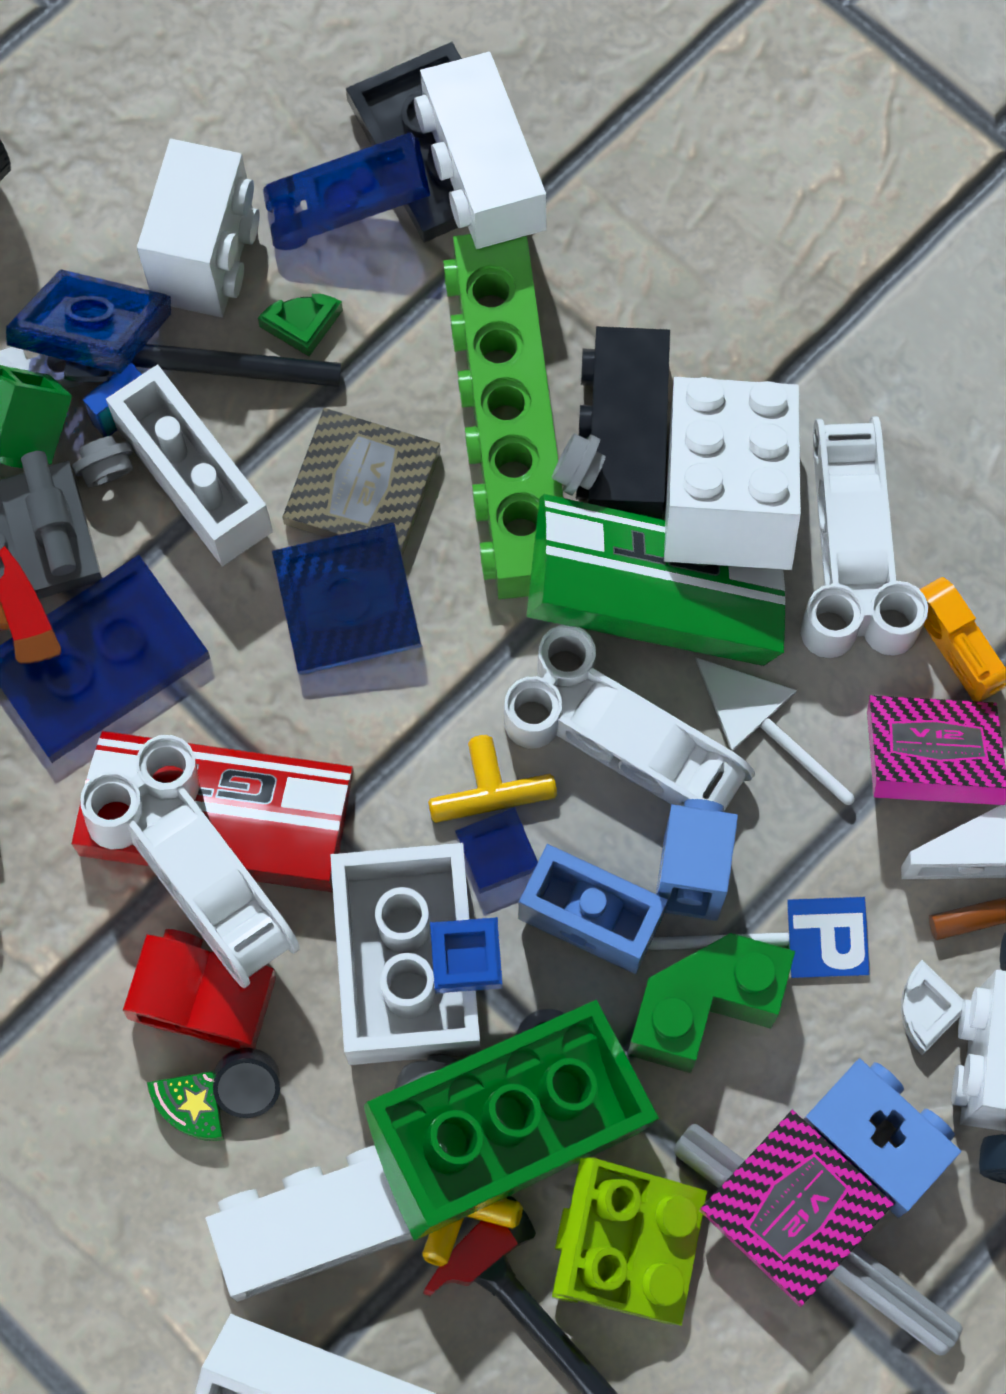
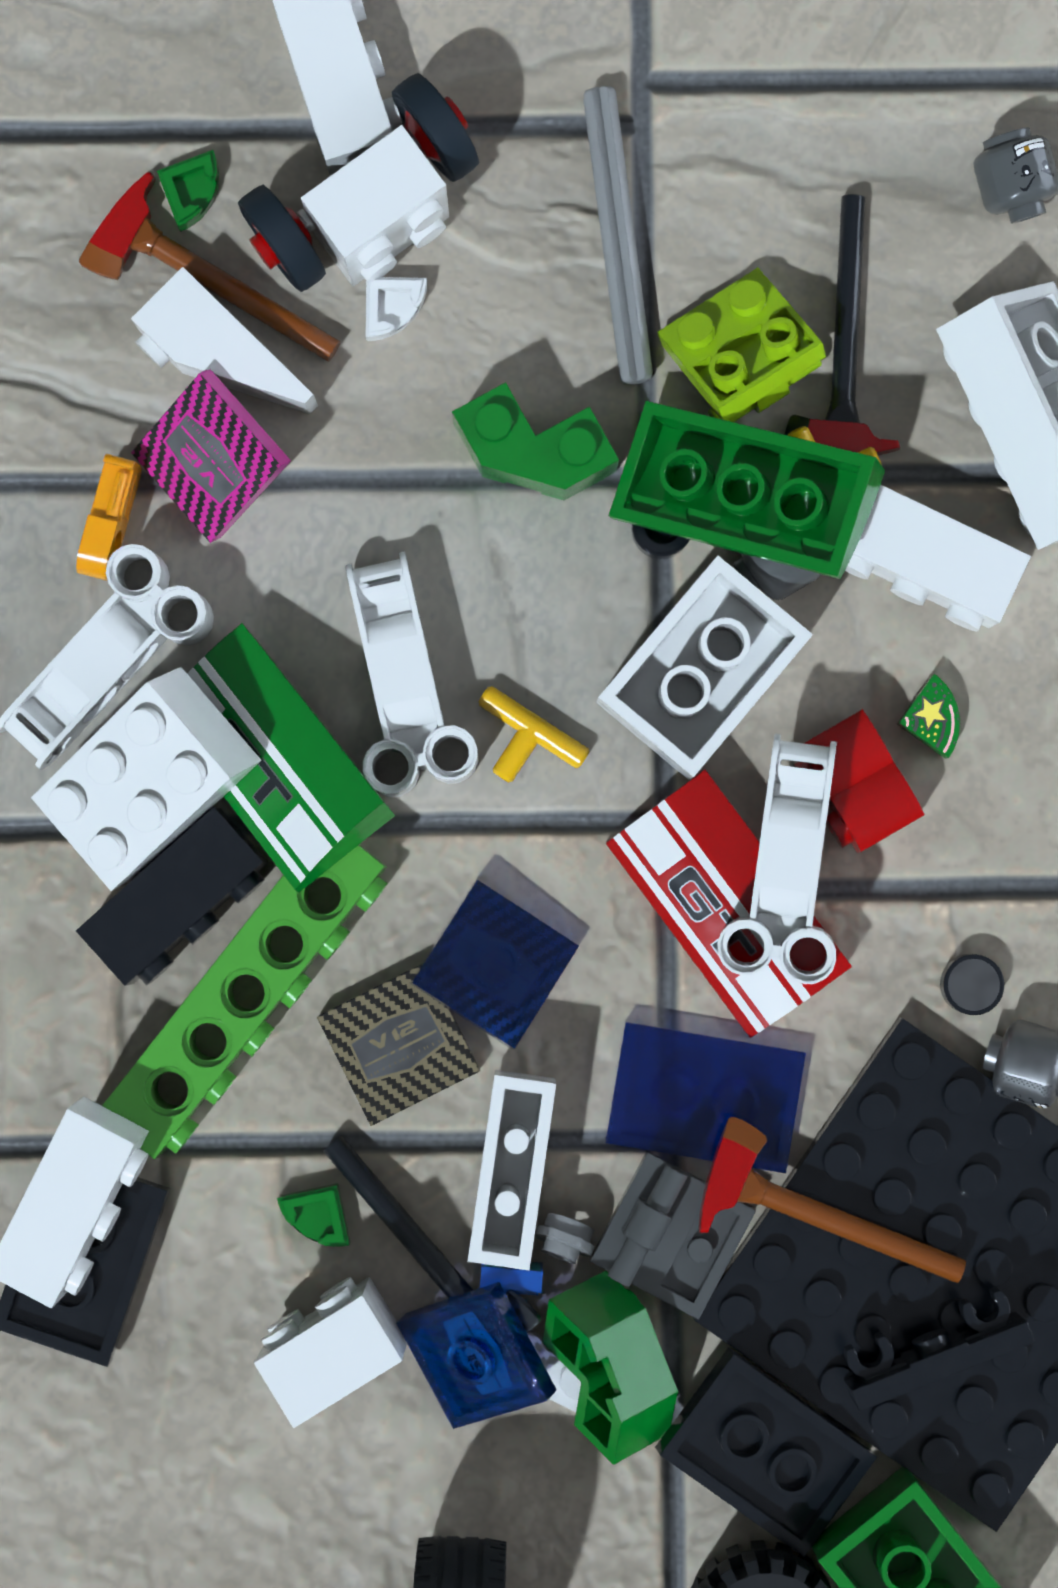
camera: 140 degrees left, 15 degrees up
(246, 1083) = (885, 692): tile -> none
(346, 190) = (190, 1277): clear blue plate -> none
(466, 955) = (673, 616): blue tile -> none
(497, 850) = (566, 688): clear blue tile -> none
(579, 463) = (247, 888): light grey plate -> none
(591, 908) = (551, 575): medium blue brick -> none
(696, 859) = (452, 537): medium blue brick -> none
(746, 704) = (297, 622): white piece -> none
(796, 1208) = (616, 259): tile -> none
(823, 932) = (412, 417): piece -> none
(921, 1138) = (520, 217): medium blue brick -> none

